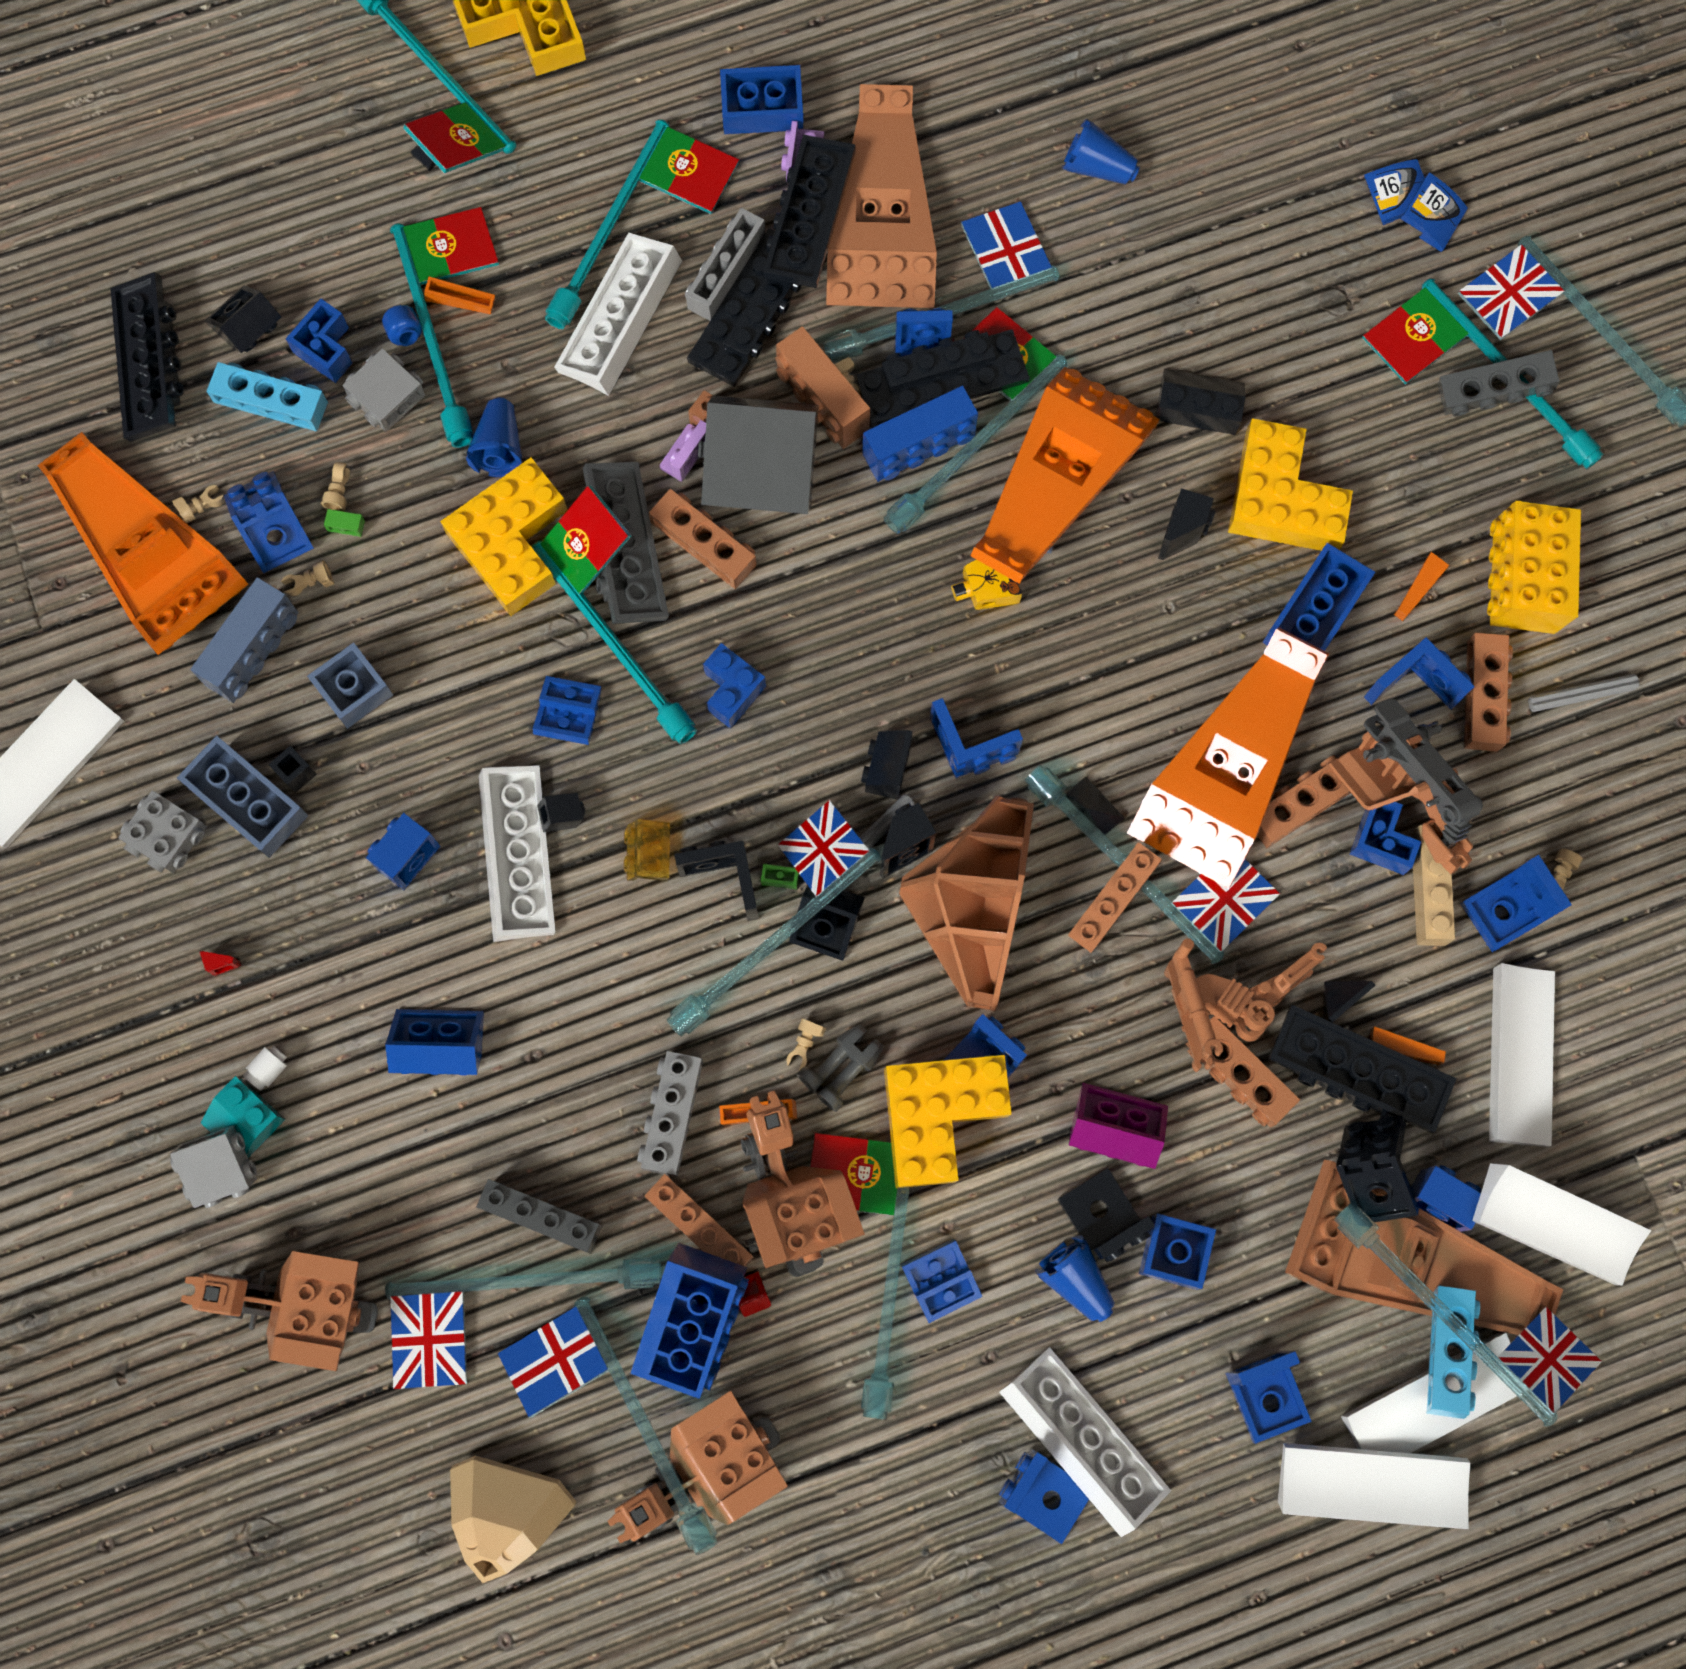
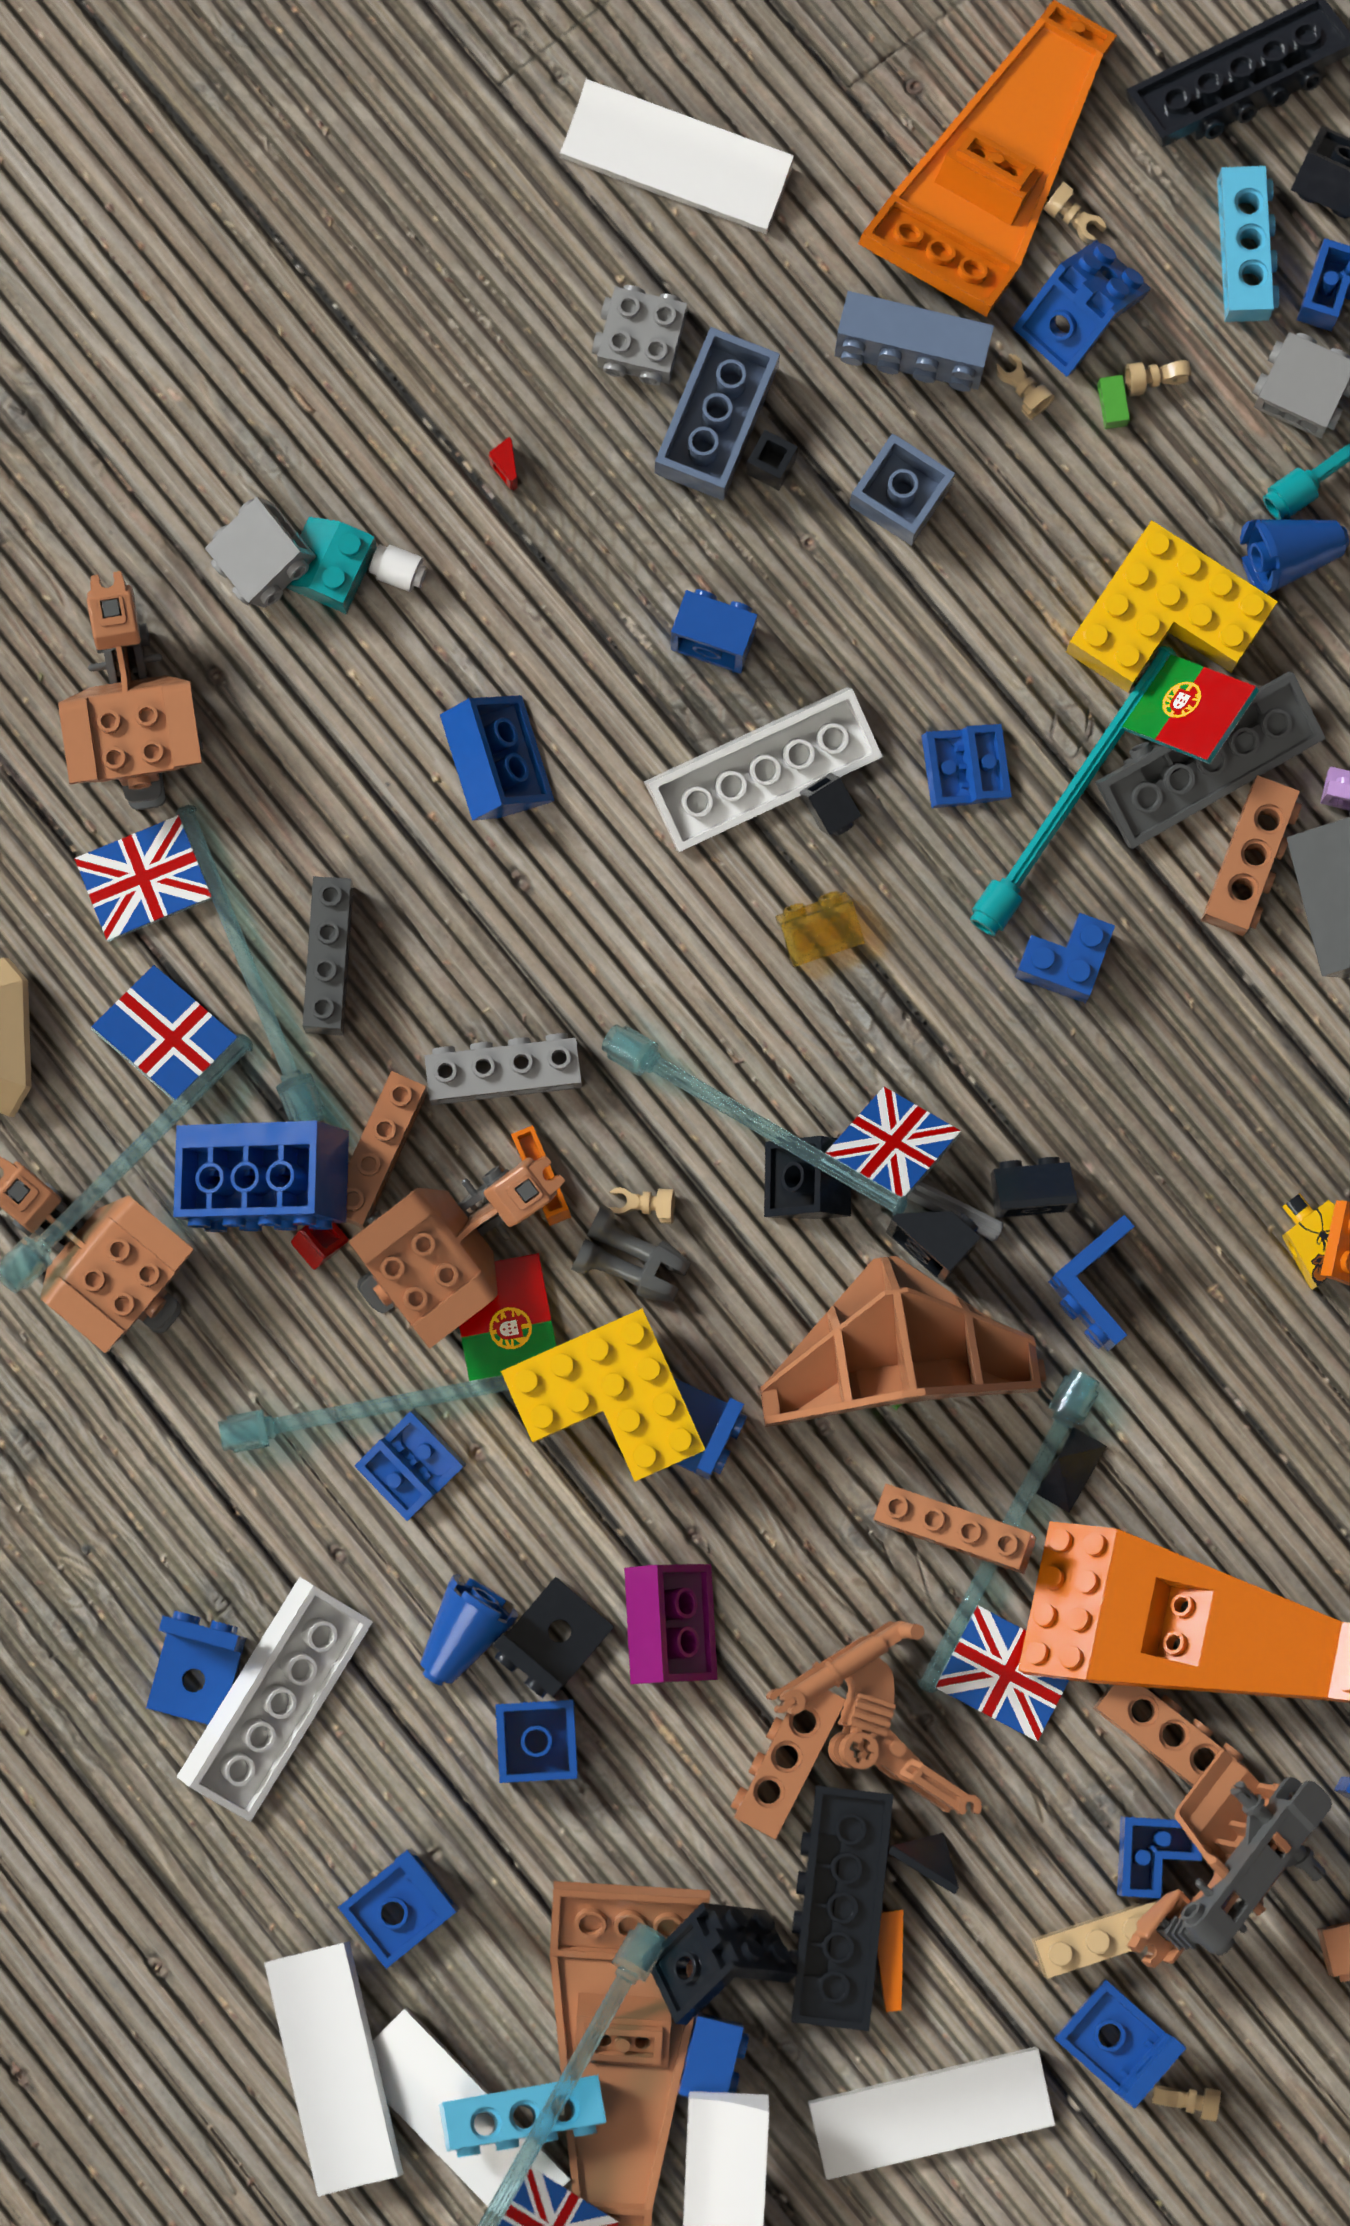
camera: 70 degrees right, 5 degrees up
(717, 857) = (842, 1021): black bracket -> none
(779, 876) = (842, 1101): bright green piece -> none

